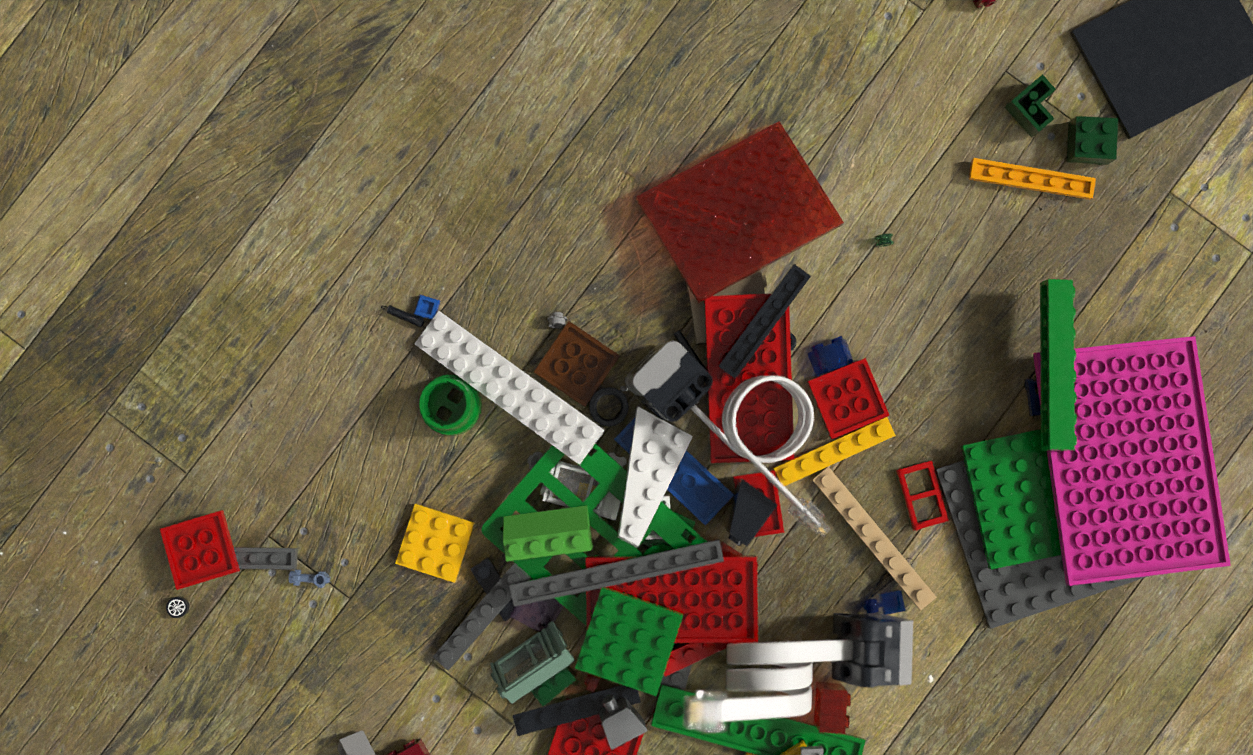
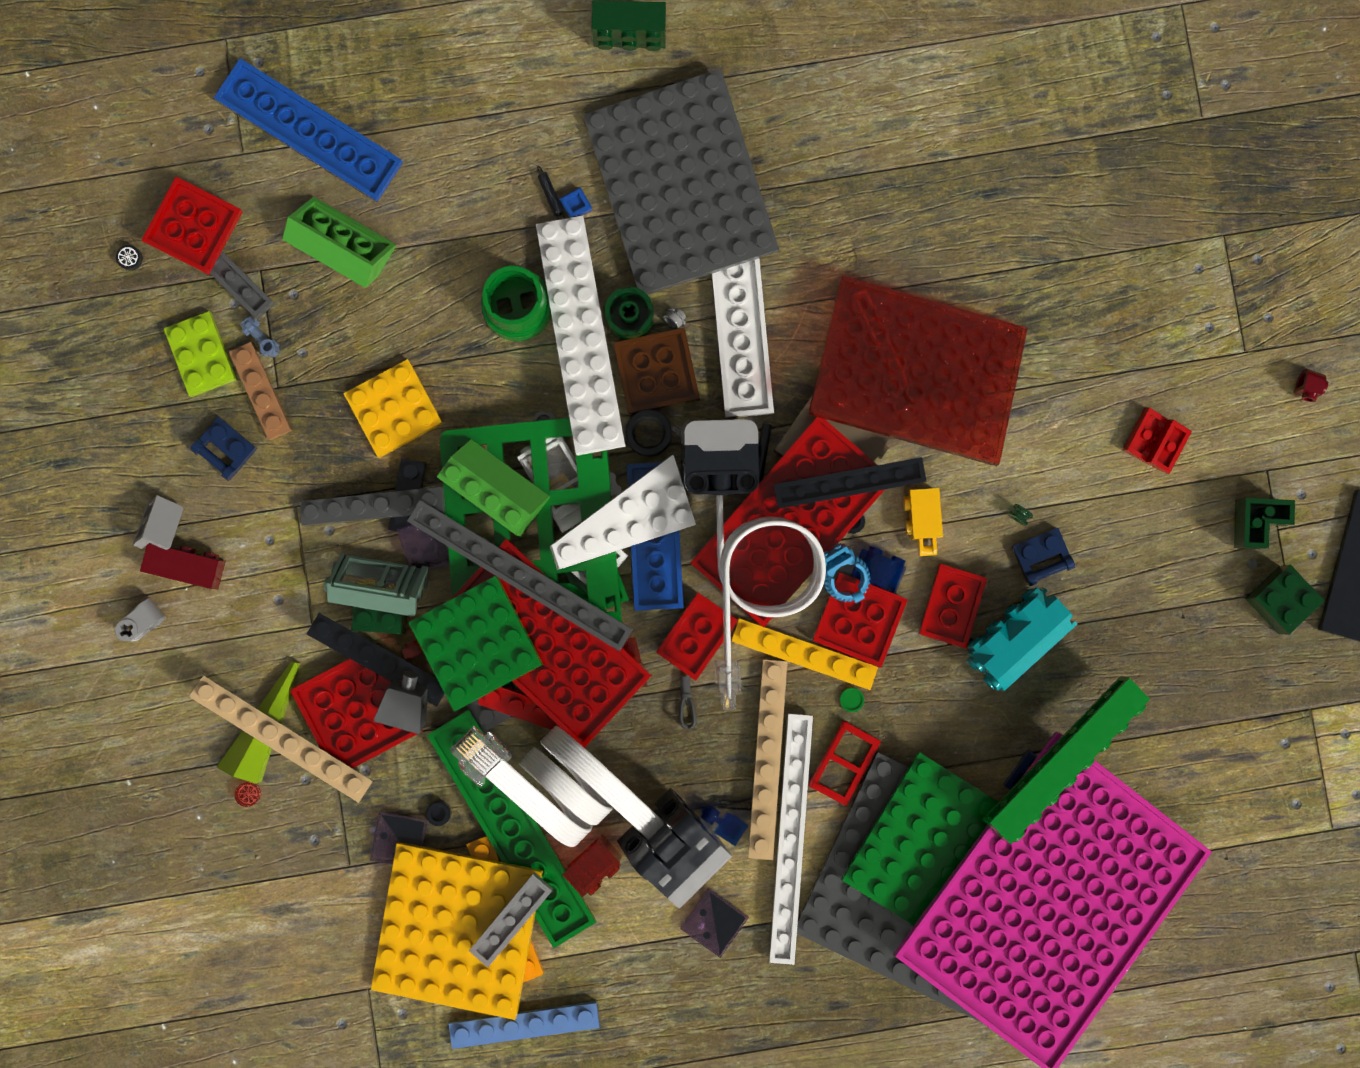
camera: 45 degrees right, 0 degrees up
(214, 420) = (308, 130): none -> blue plate
(281, 624) = (200, 354): none -> lime plate
(301, 471) = (338, 241): none -> bright green slope
(341, 611) = (260, 391): none -> medium nougat plate
(351, 662) = (229, 442): none -> dark blue plate
(355, 165) = (629, 25): none -> dark green brick
(480, 233) = (681, 182): none -> dark grey plate
(517, 337) = (627, 300): none -> dark green brick
(582, 269) = (742, 341): none -> white plate
(748, 513) = (679, 633): black slope -> none
(786, 547) = (686, 695): none -> dark grey piece
(800, 372) = (834, 560): none -> dark azure piece
(828, 298) = (924, 518): none -> yellow brick
(889, 452) = (852, 699): none -> green piece
(896, 336) = (952, 606): none -> red plate
(915, 250) = (1039, 549): none -> dark blue plate
(922, 115) = (1157, 440): none -> red slope
(934, 573) = (791, 839): none -> white plate
(937, 669) = (714, 922): none -> tile
(957, 317) = (1020, 638): none -> teal brick
(1032, 178) = (1200, 583): light orange plate -> none

